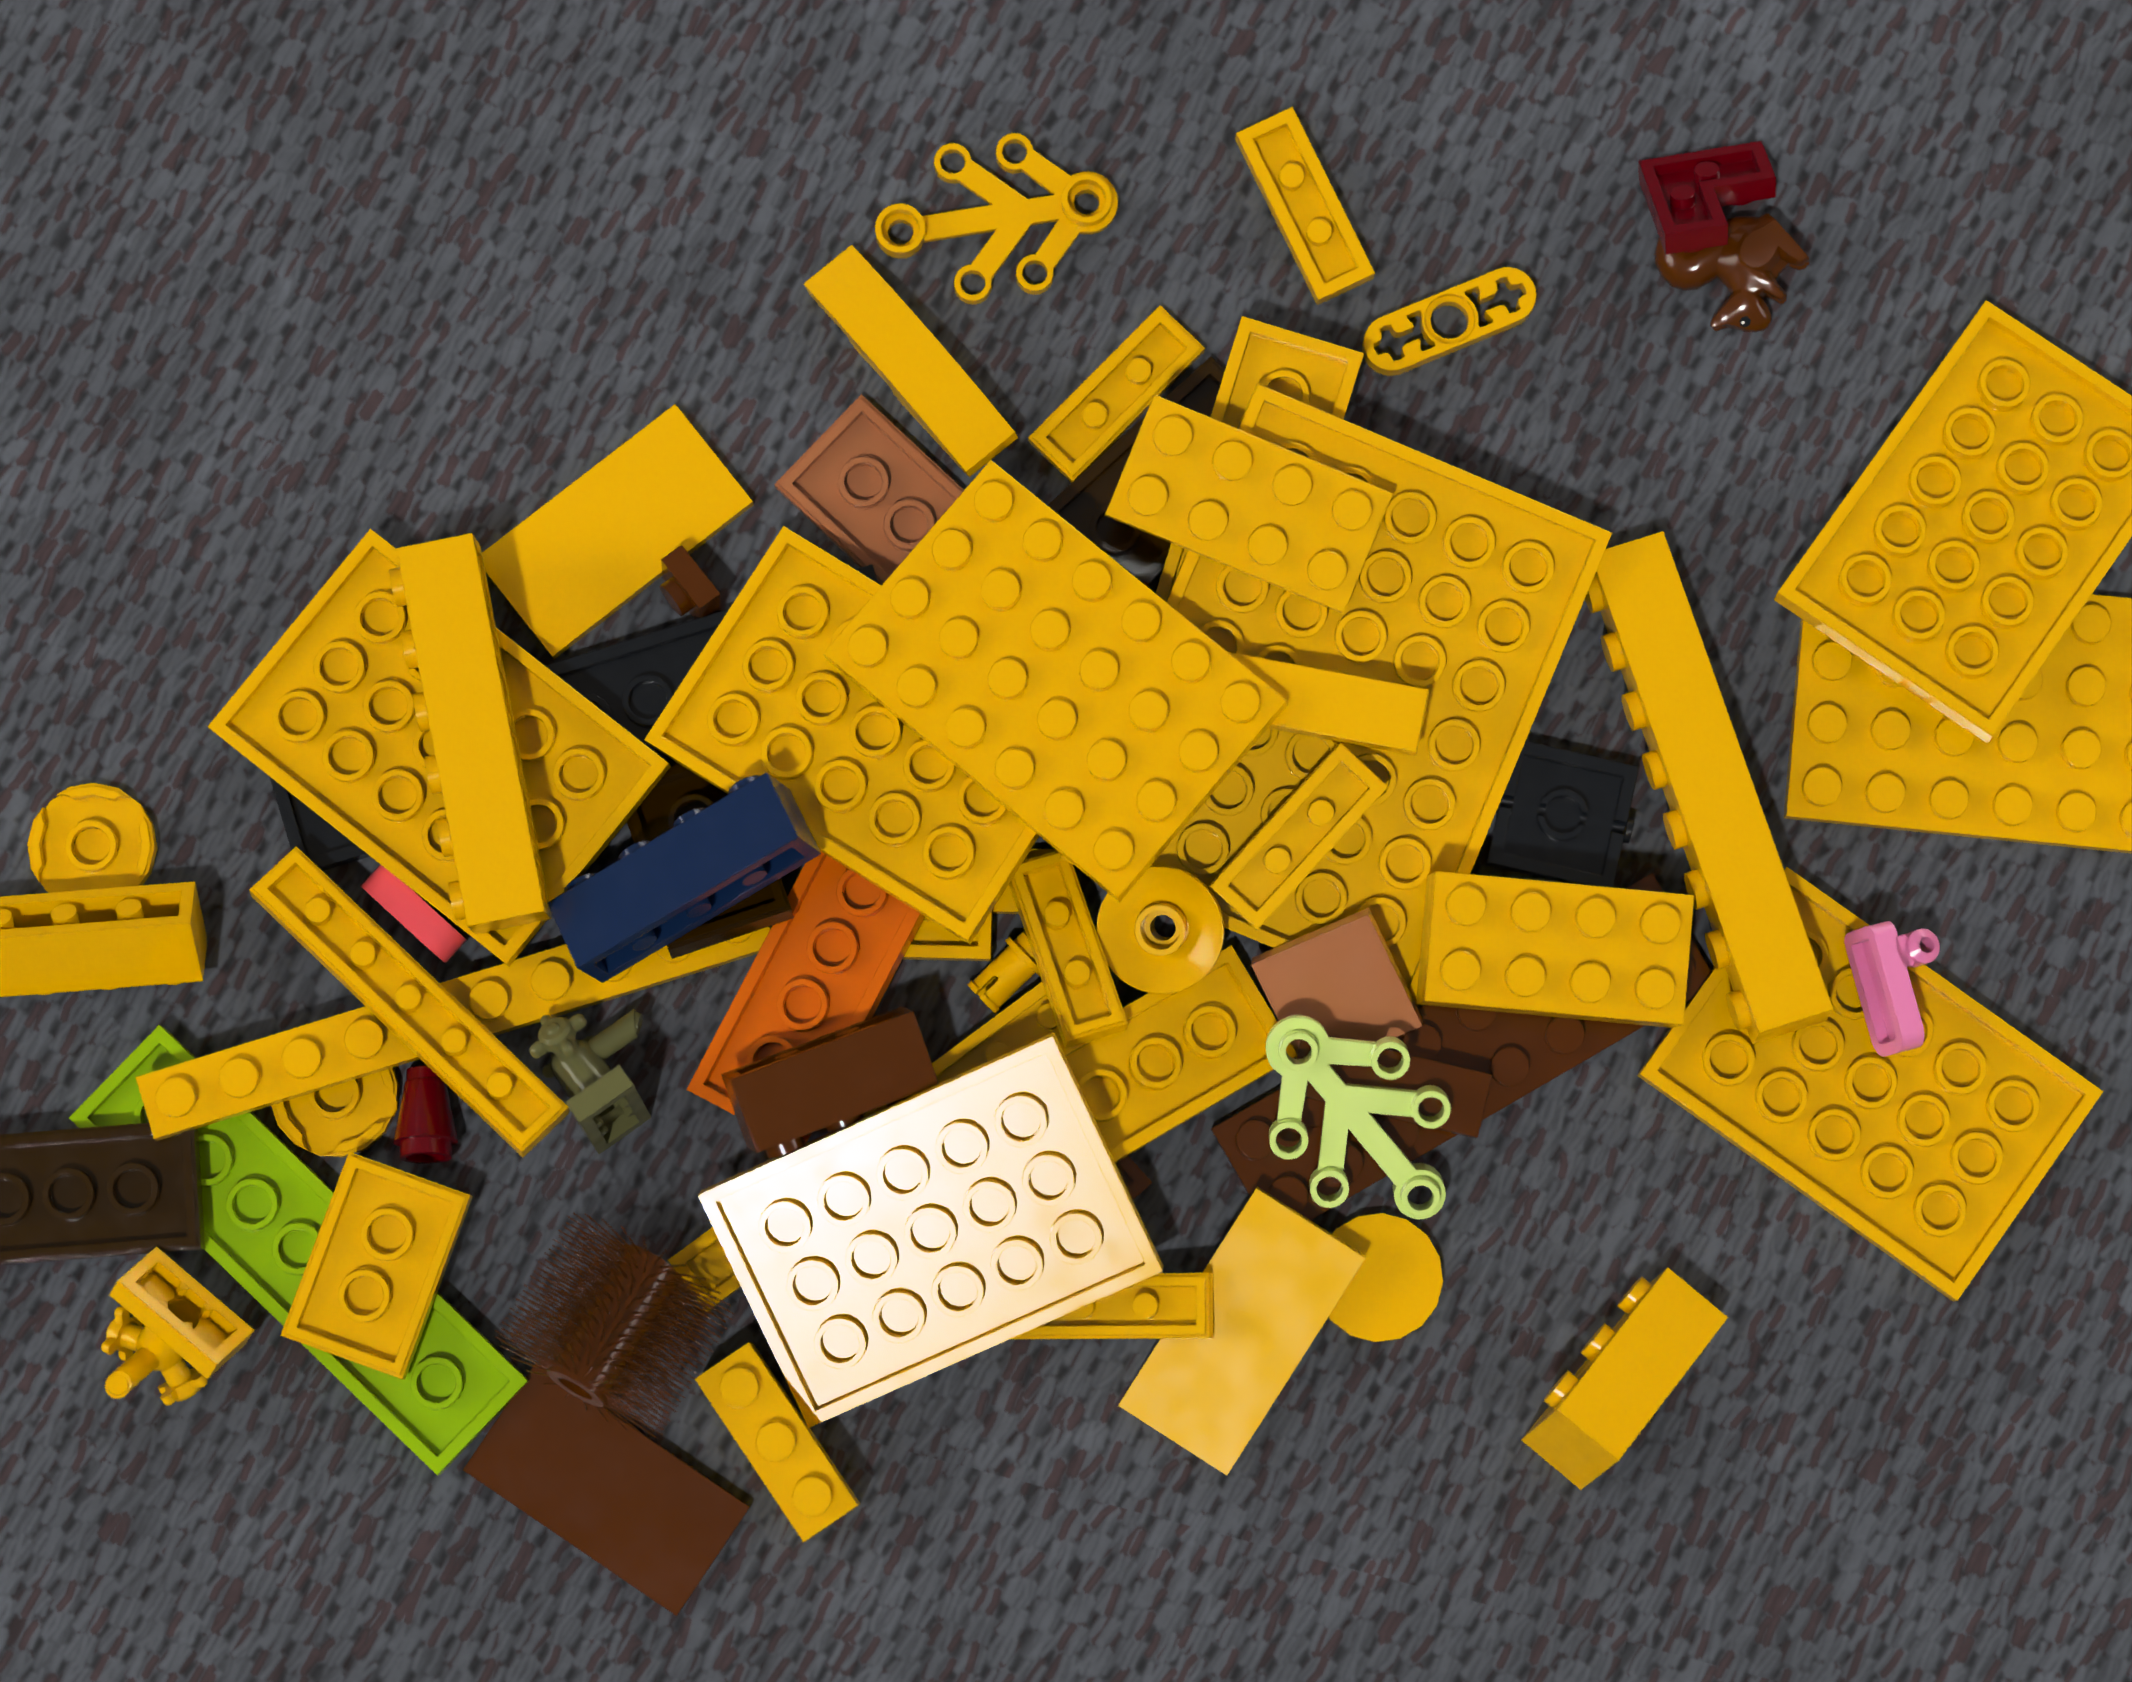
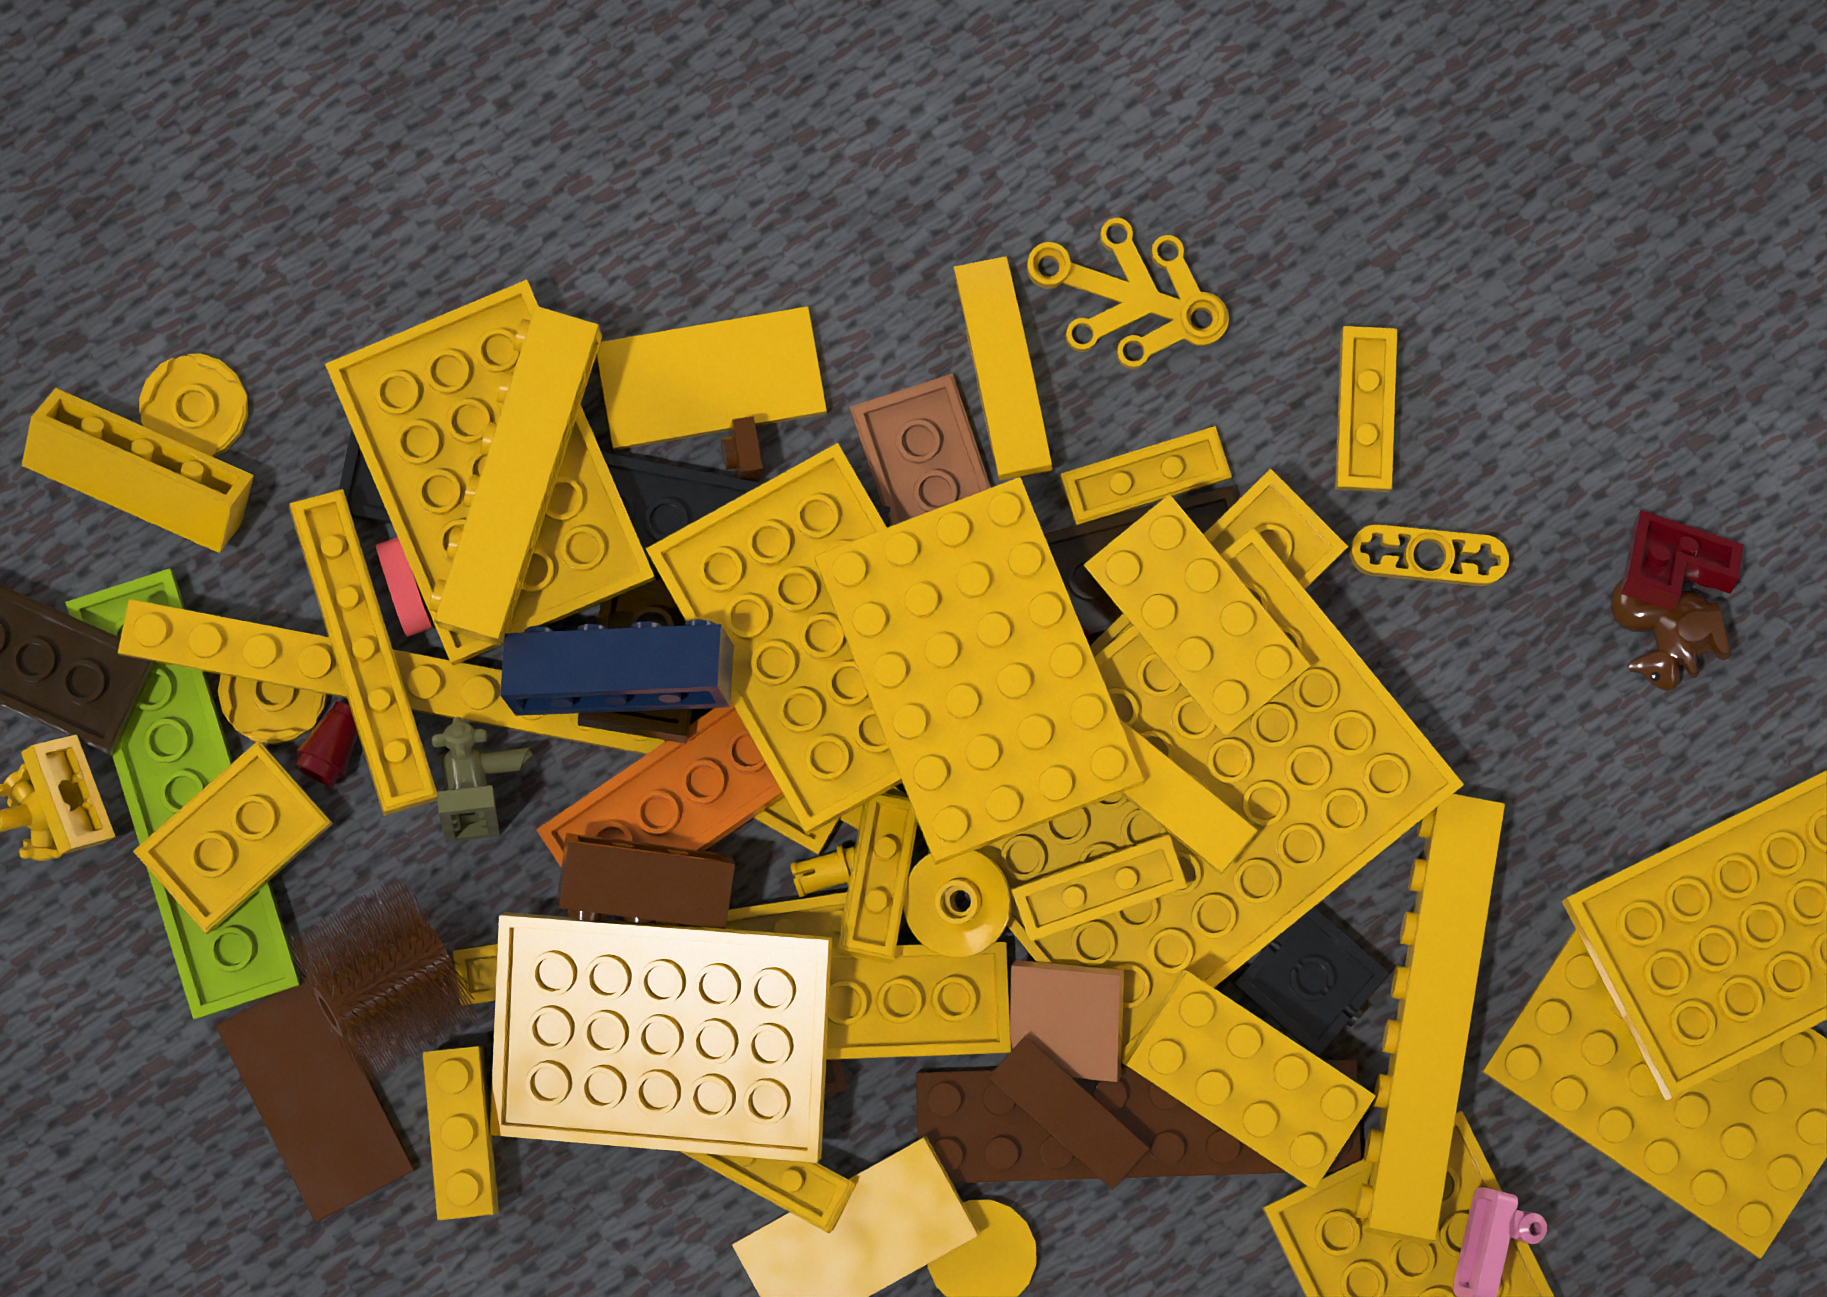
camera: 25 degrees right, 0 degrees up
(1351, 1108) = (1027, 1116): yellowish green plant -> none

